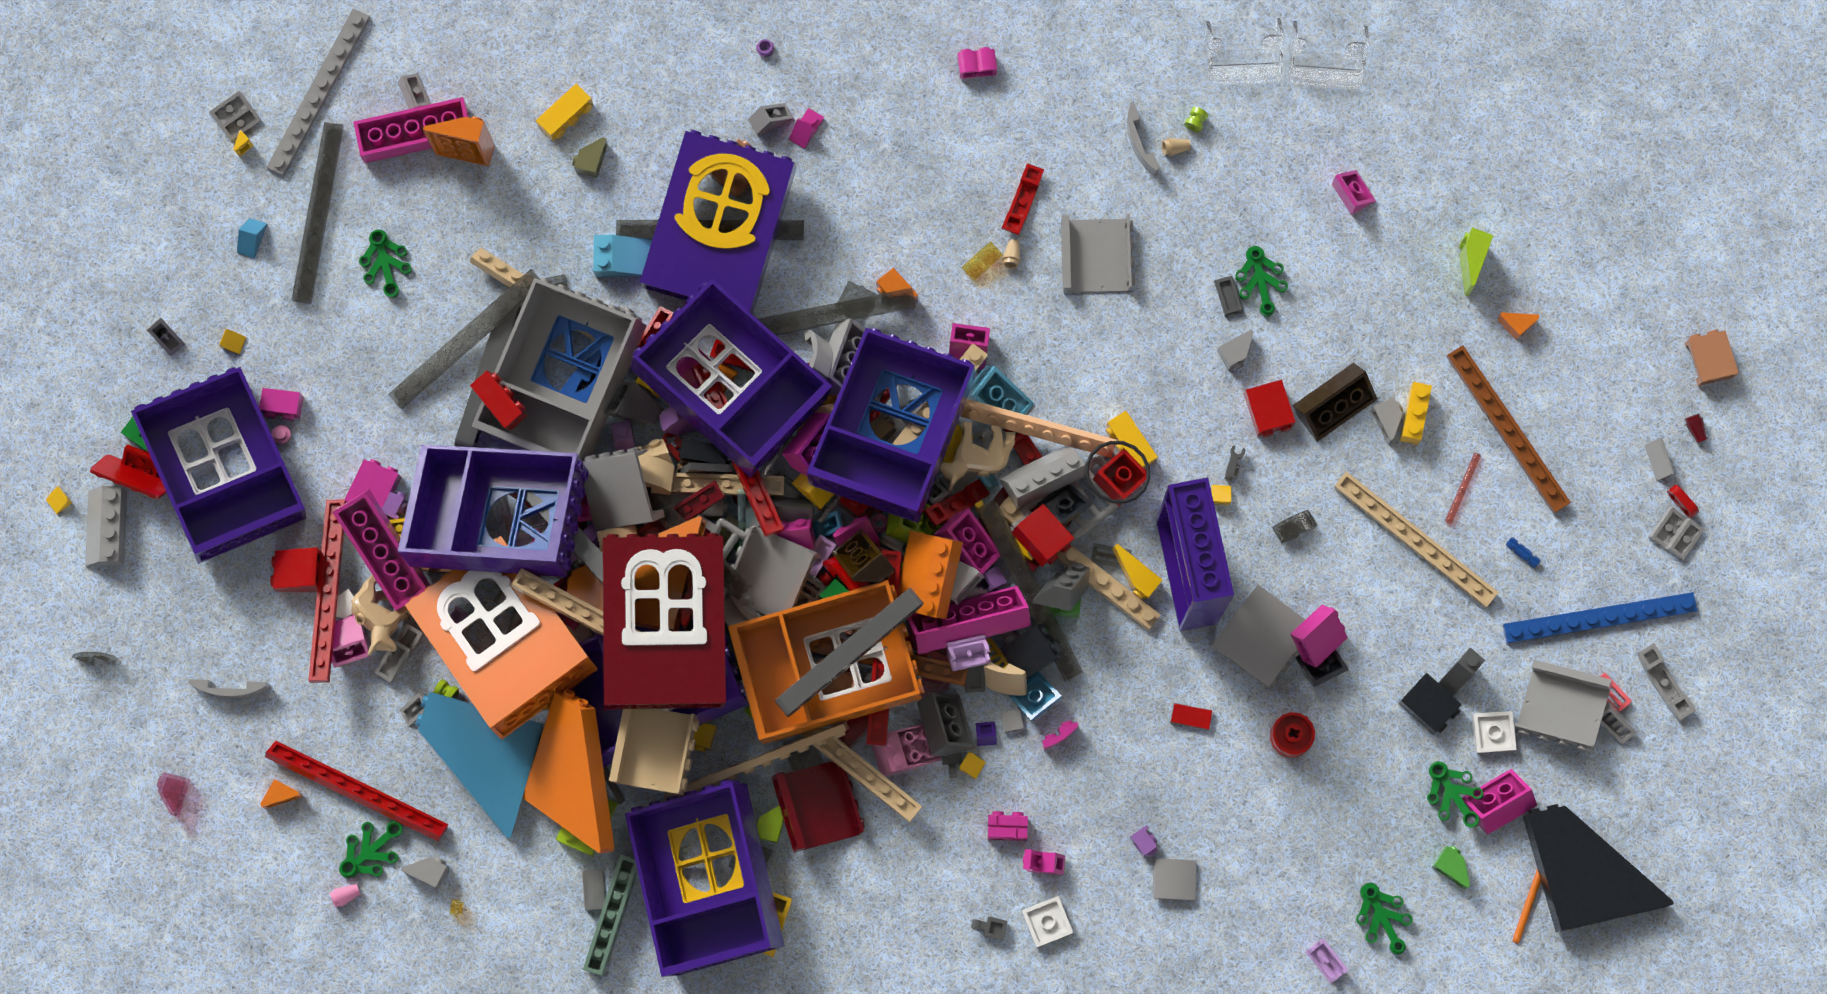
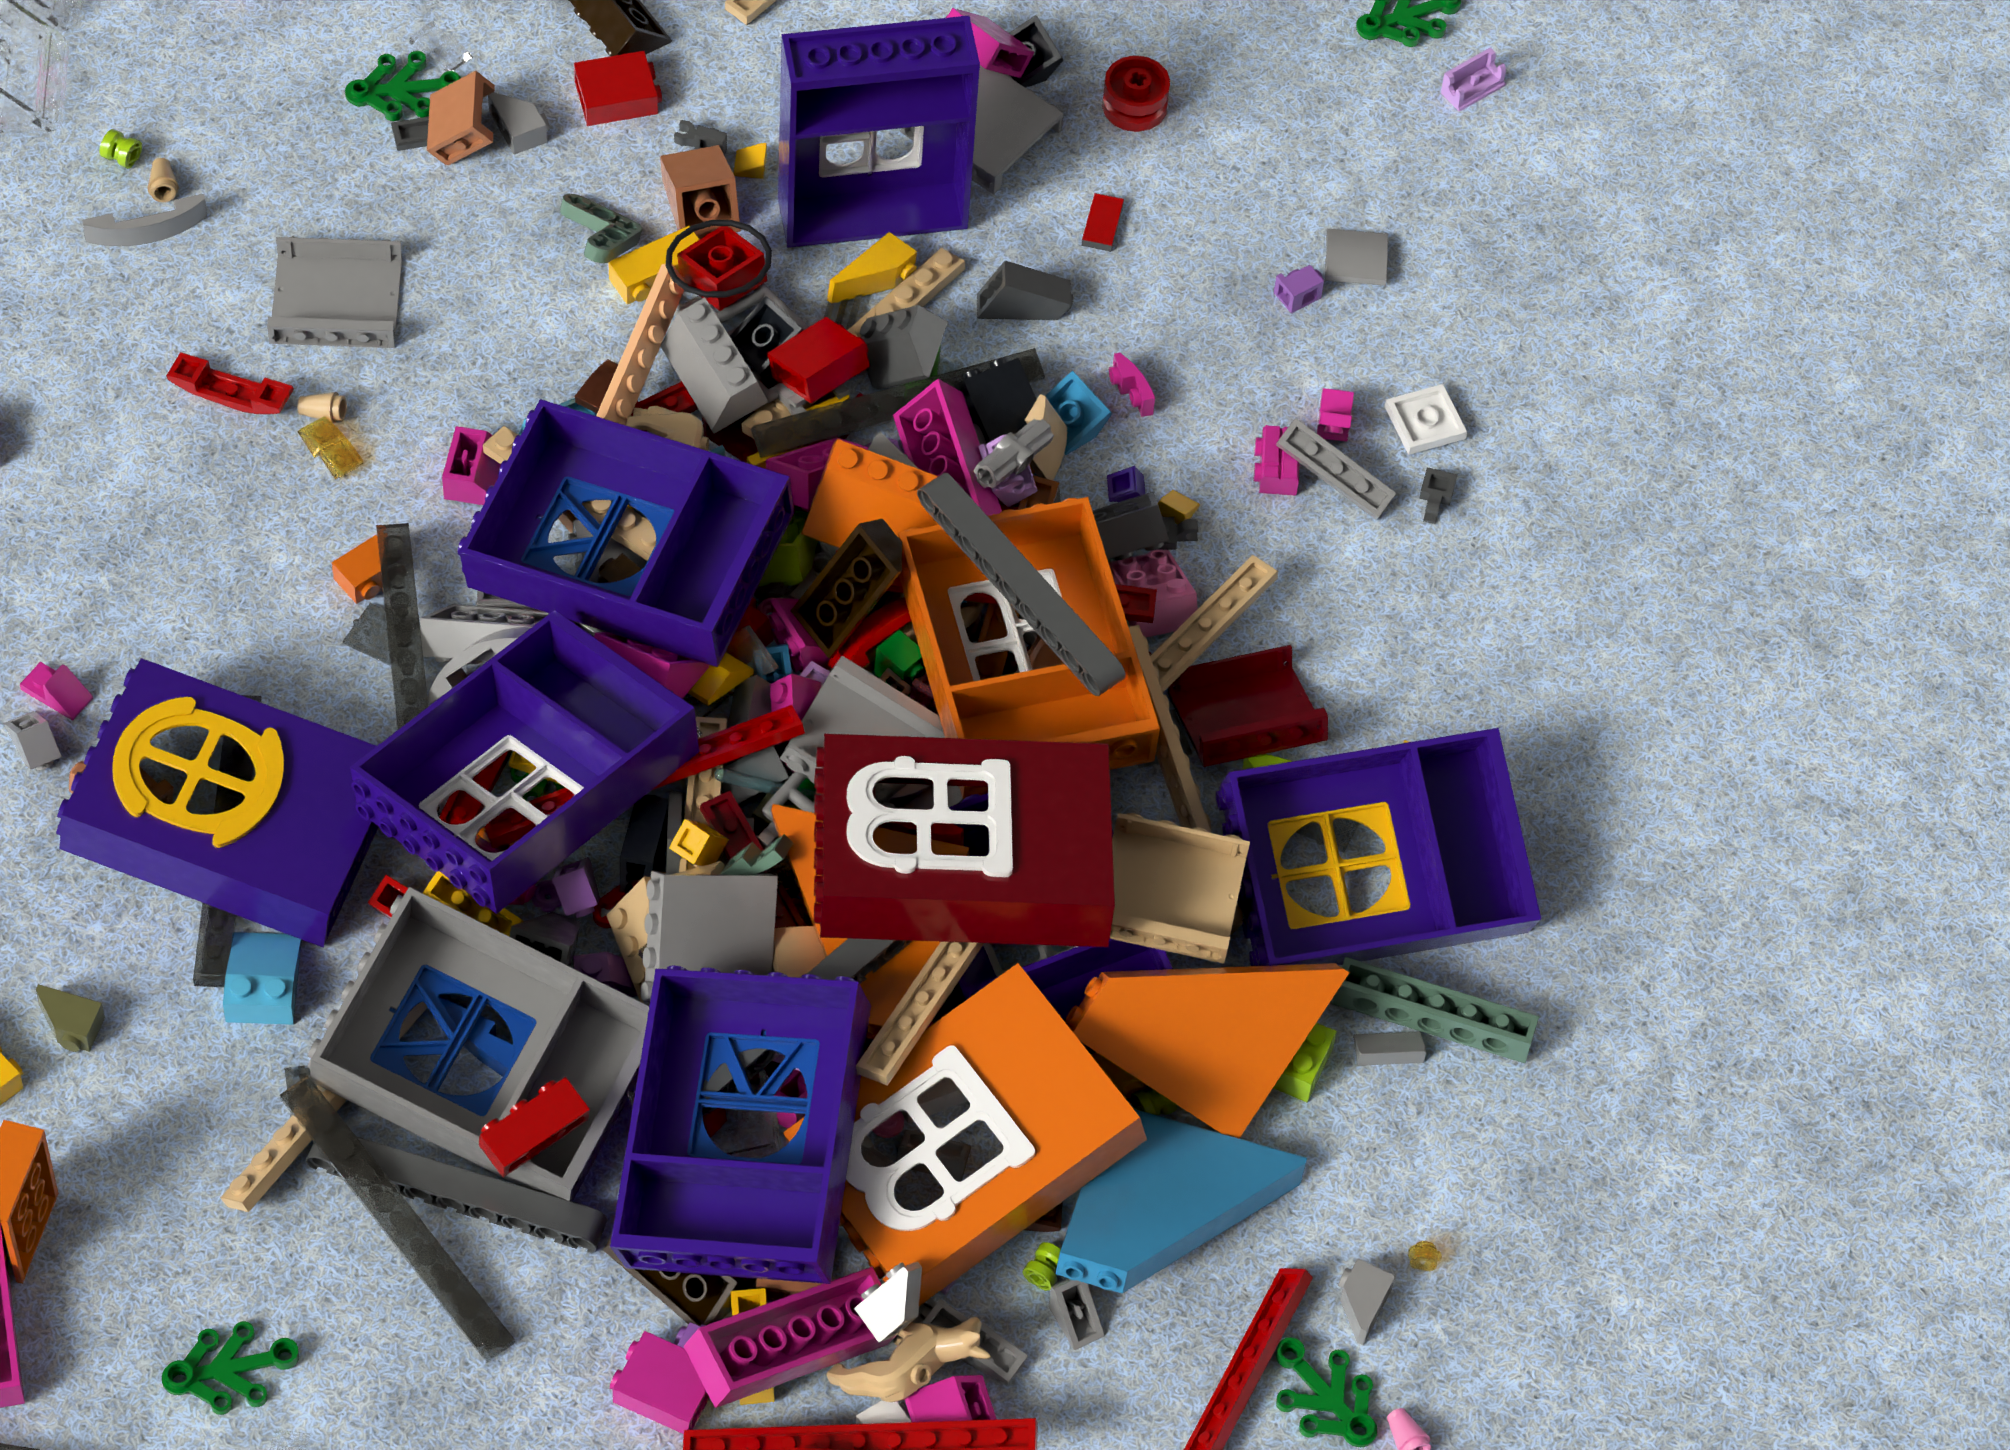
camera: 95 degrees left, 20 degrees down
(394, 598) = (893, 1304): none -> slope
(667, 510) = (753, 860): none -> sand green slope
(685, 479) = (698, 843): none -> yellow brick
(970, 653) = (1013, 453): none -> light grey piece
(997, 861) = (1335, 468): none -> light grey hinge
(1012, 721) = (1106, 450): light grey tile -> none
(1032, 409) = (596, 386): none -> copper slope
(1122, 667) = (1023, 295): none -> dark grey slope
(1154, 413) = (614, 231): none -> sand green beam
(1190, 461) = (700, 188): none -> nougat slope
(1231, 311) = (456, 119): none -> nougat panel

